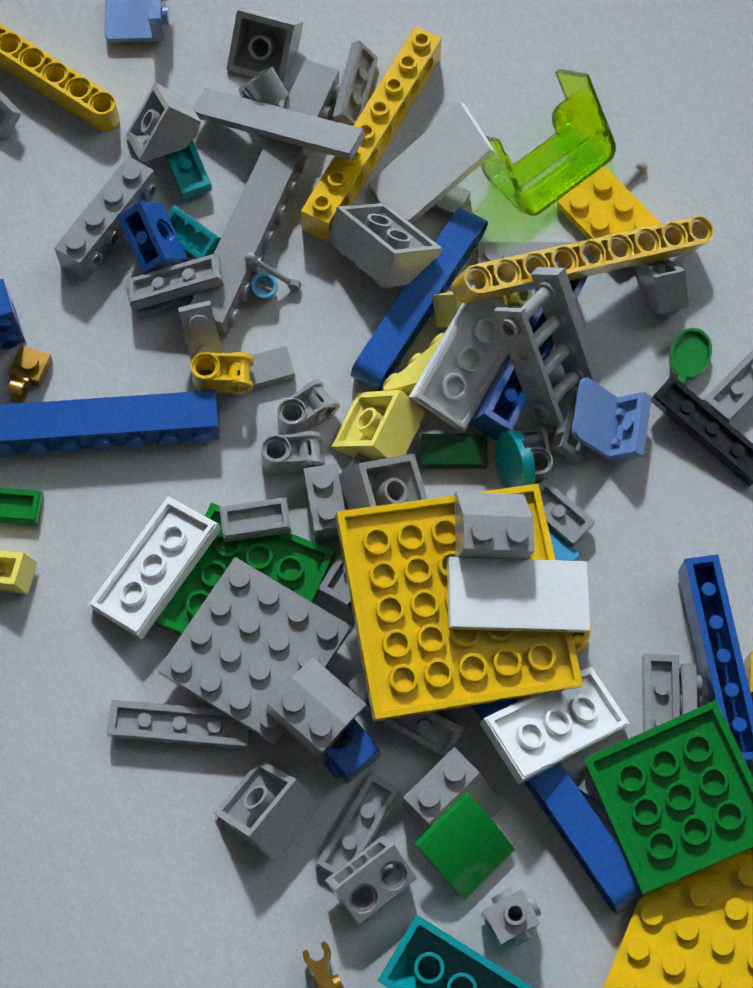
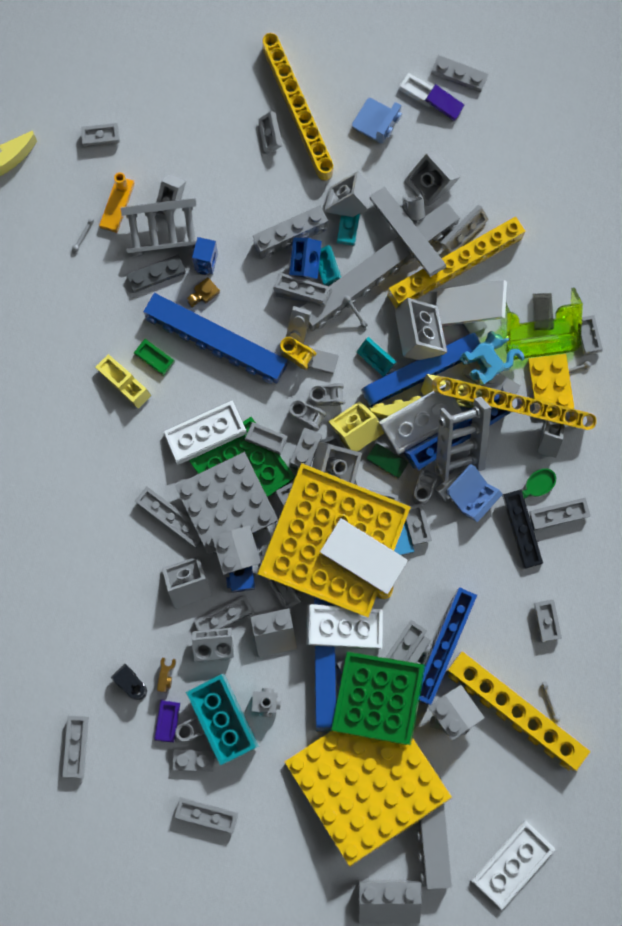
camera: 30 degrees right, 10 degrees up
(267, 280) = (343, 318): medium azure hinge -> none
(342, 316) = (376, 356): none -> teal plate
(464, 846) = (265, 656): green slope -> none
(493, 526) = (372, 515): light grey slope -> none
(504, 226) = (488, 359): none -> dark azure animal
(513, 460) = (410, 488): teal tile -> none
(534, 131) = (543, 311): none -> clear smoke tile
(626, 132) = (590, 336): none -> light grey plate

